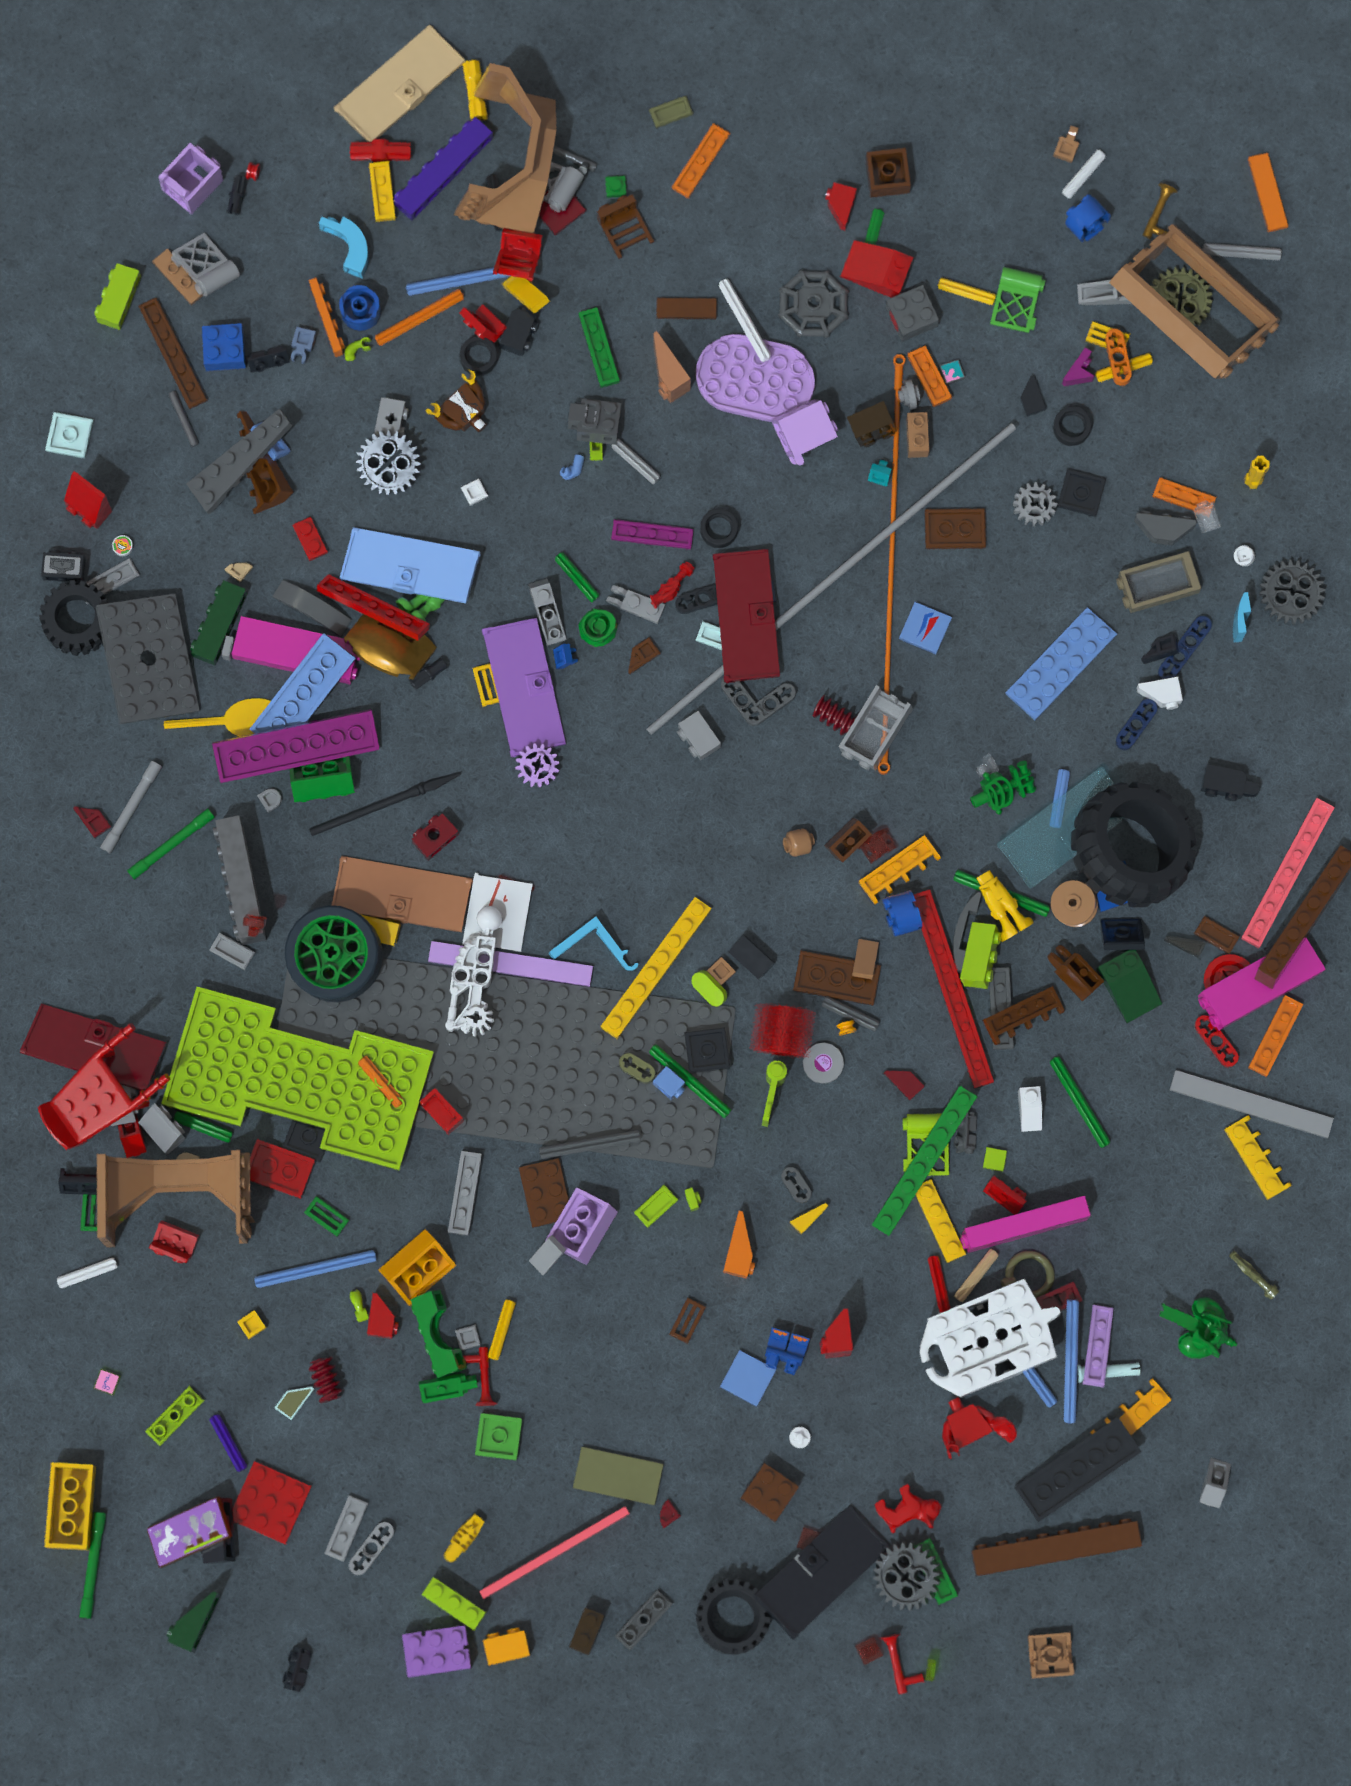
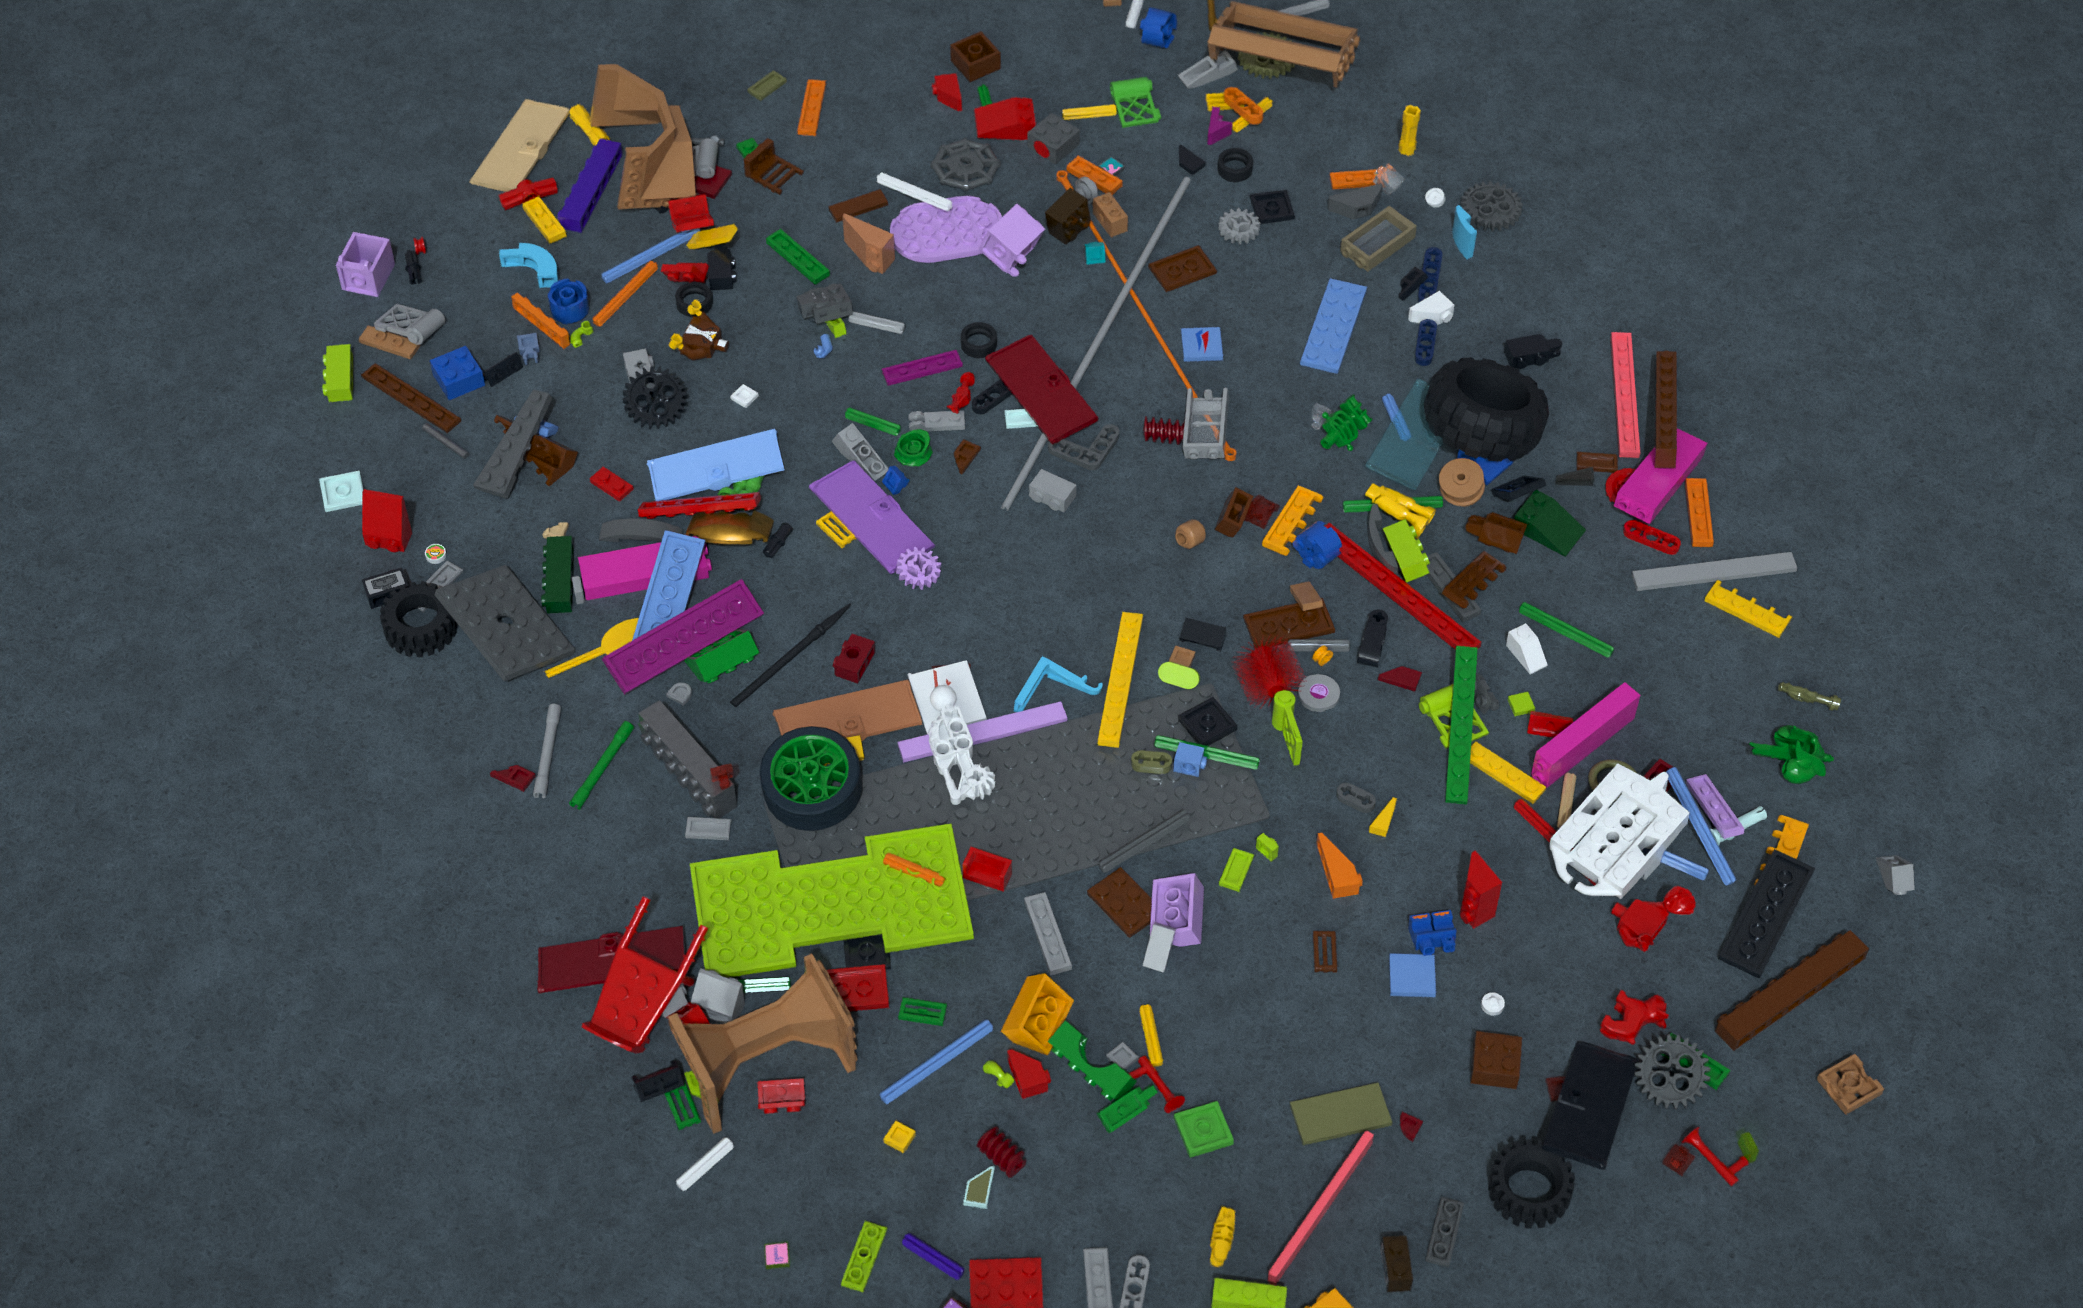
camera: 25 degrees left, 25 degrees down
(899, 1033) = (1373, 638): none -> black piece

